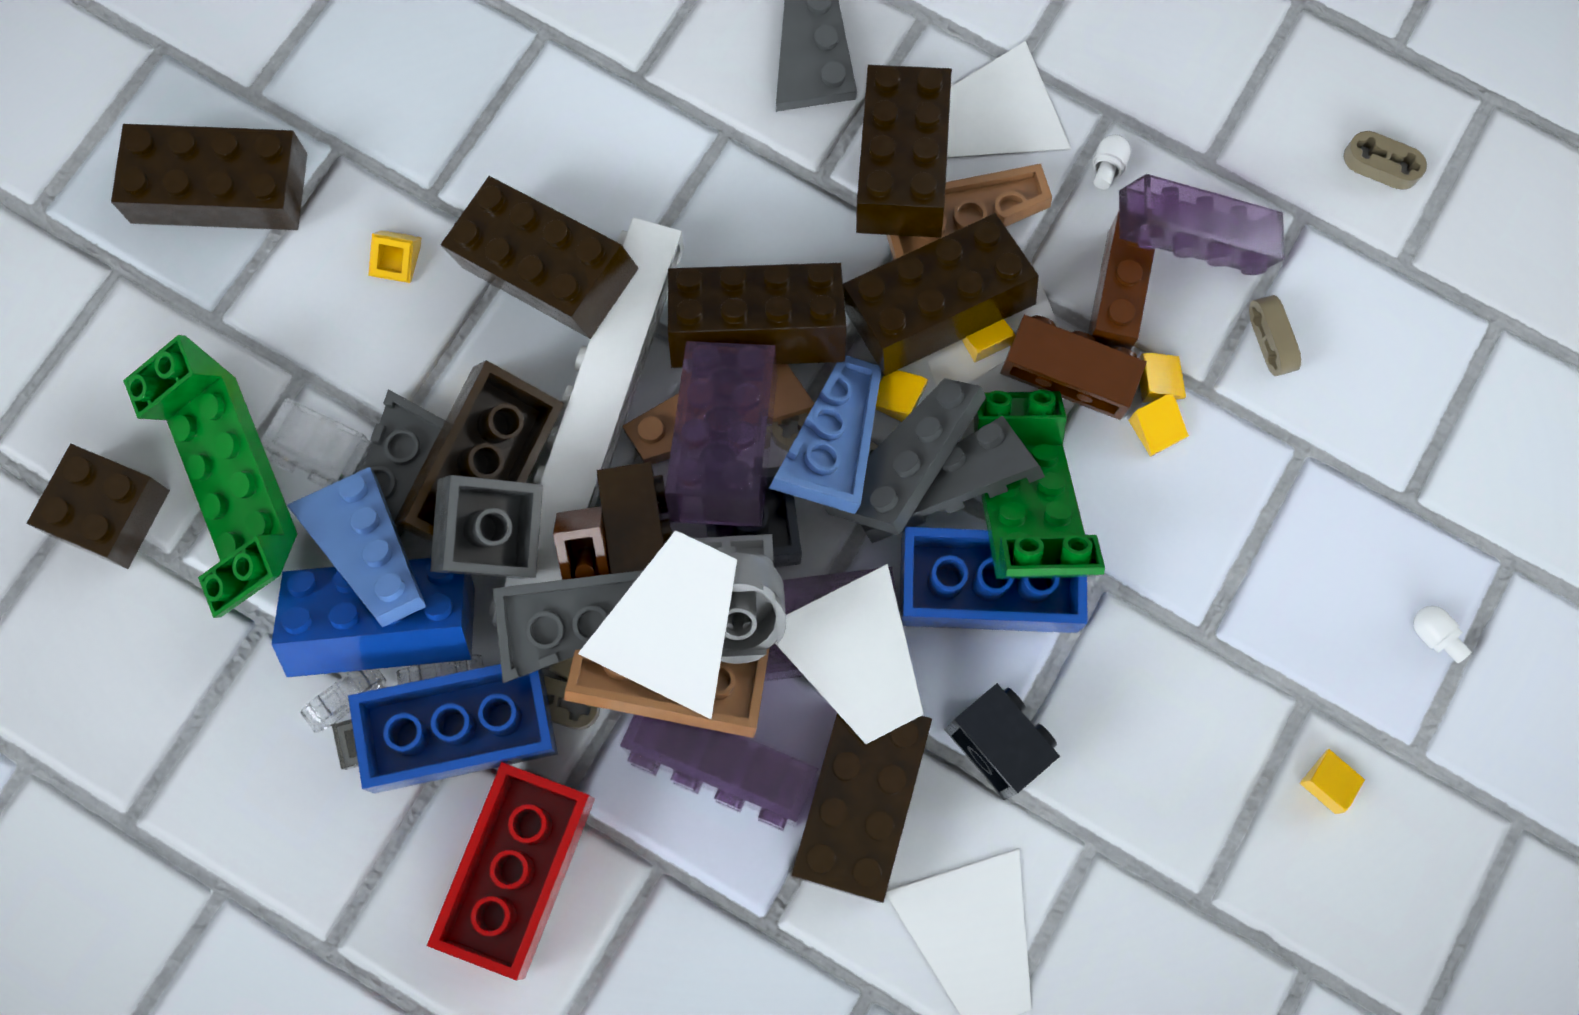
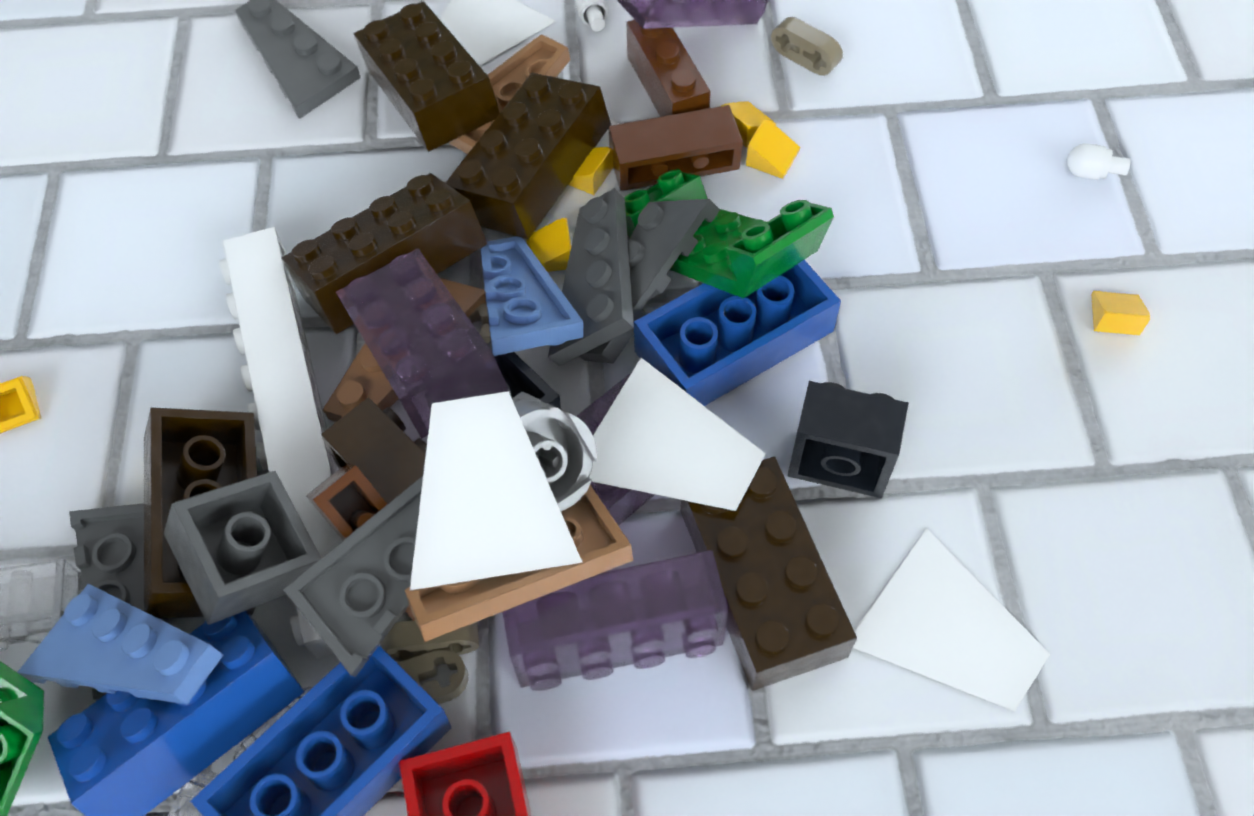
camera: 30 degrees left, 15 degrees down
(540, 256) = (153, 313): dark brown brick -> none

